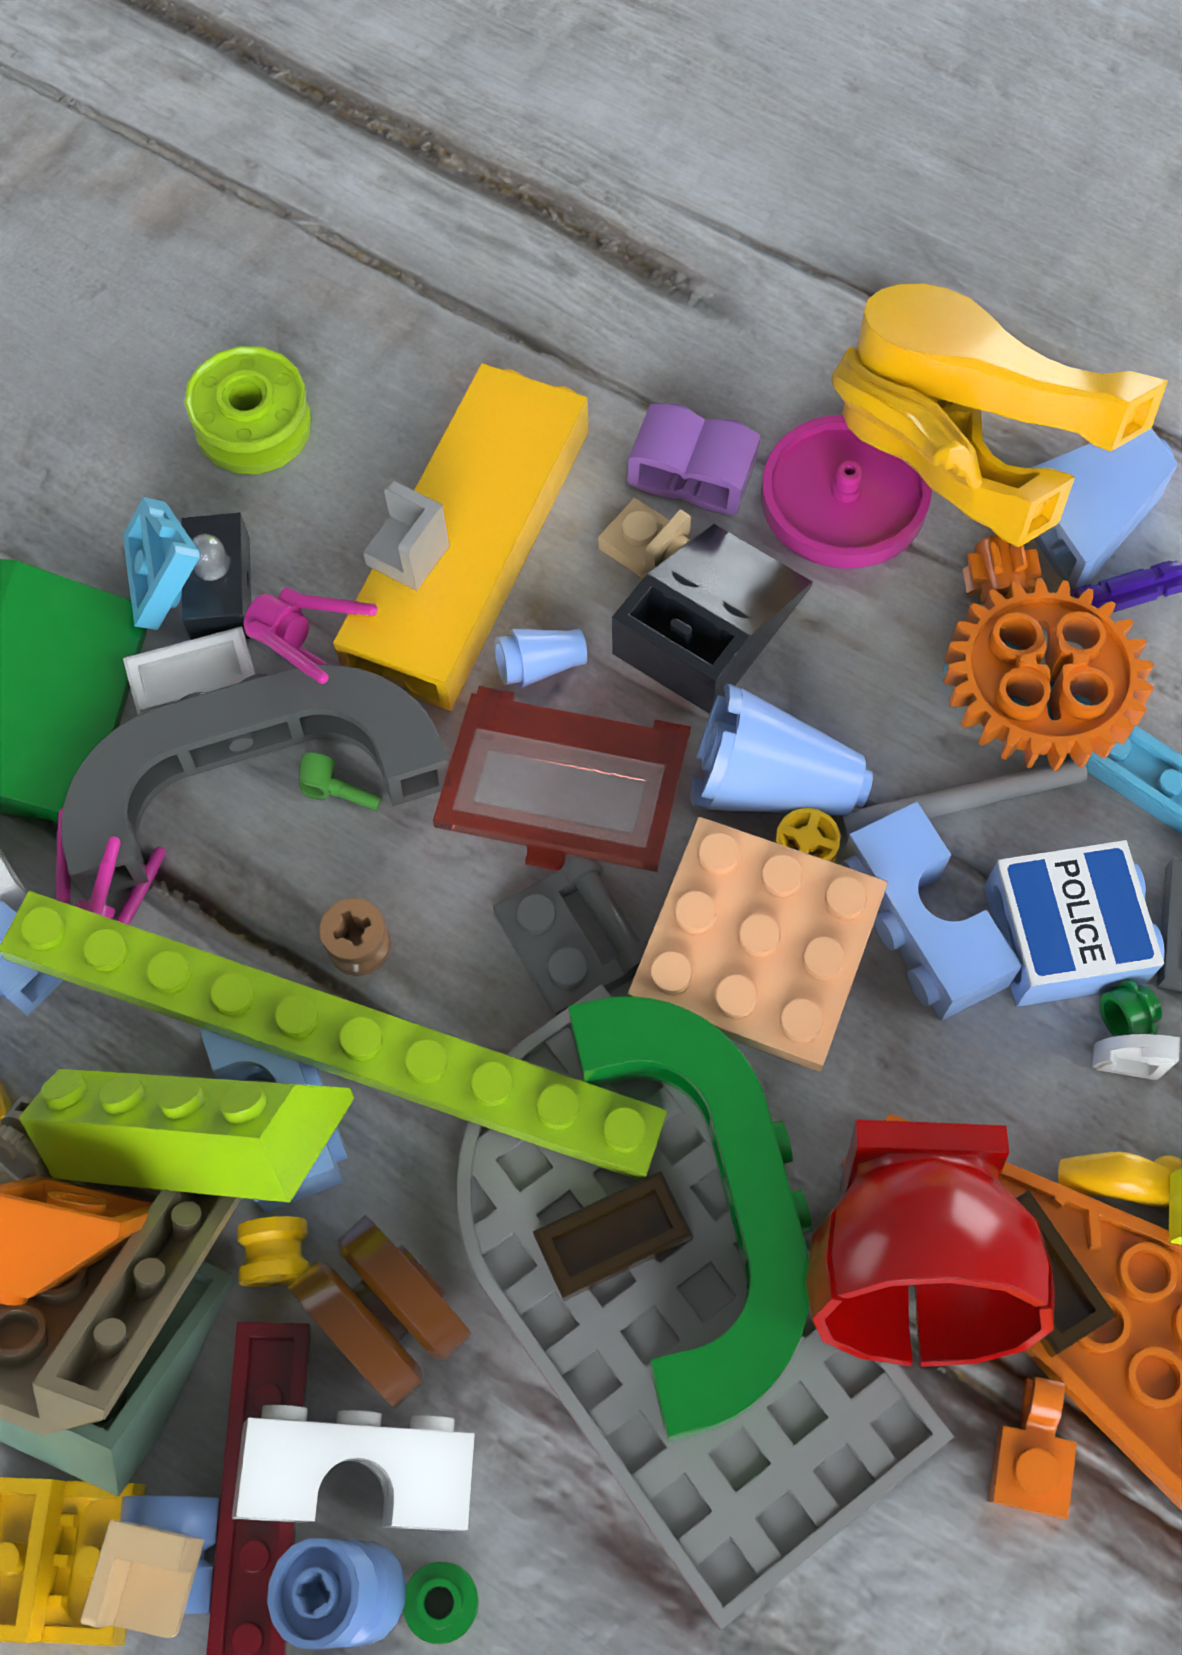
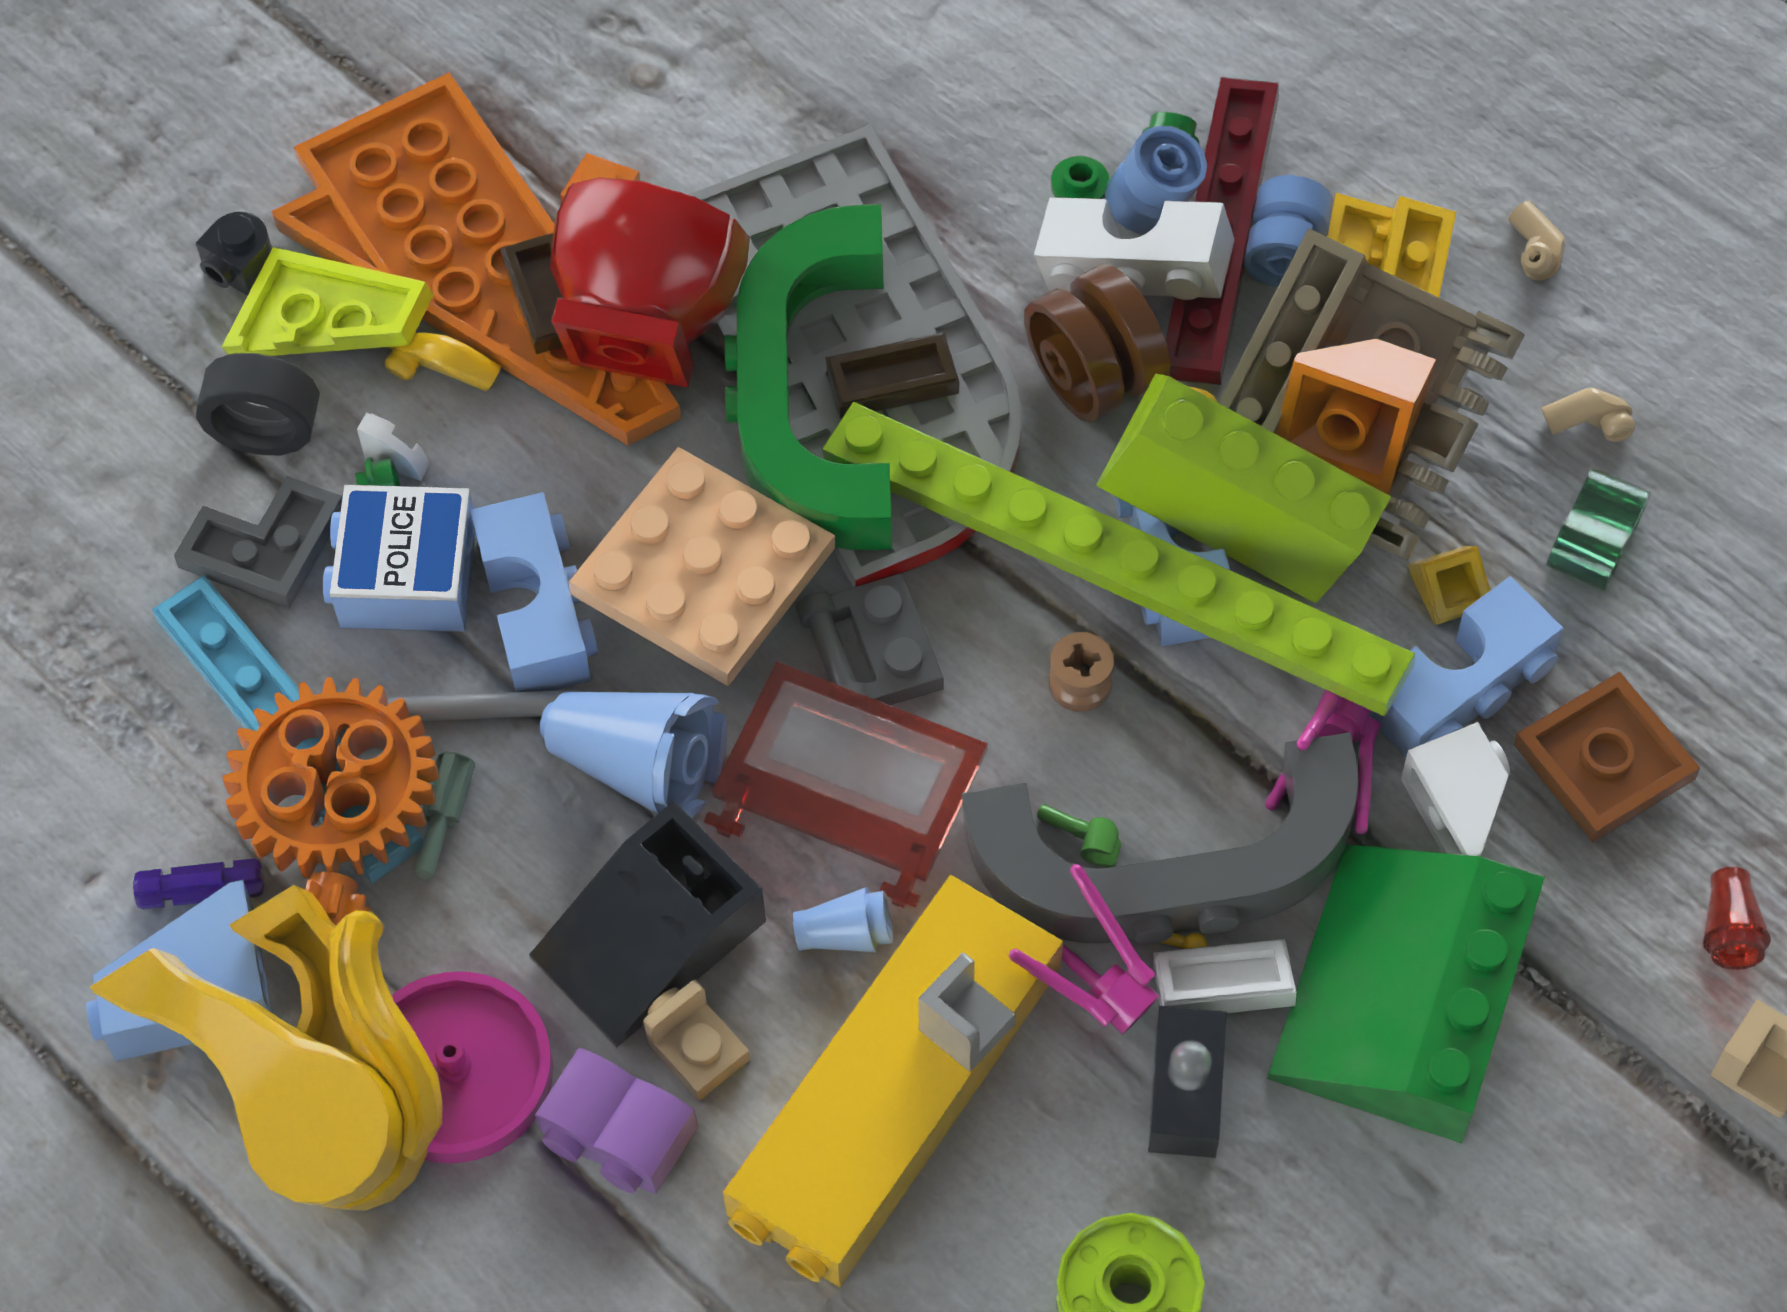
camera: 170 degrees left, 5 degrees down
(142, 1579) = (1294, 187): tan panel -> none
(157, 561) = (1250, 1089): medium azure wing -> none
(810, 832) = (623, 661): yellow wheel -> none
(937, 718) = (450, 791): none -> sand green axle

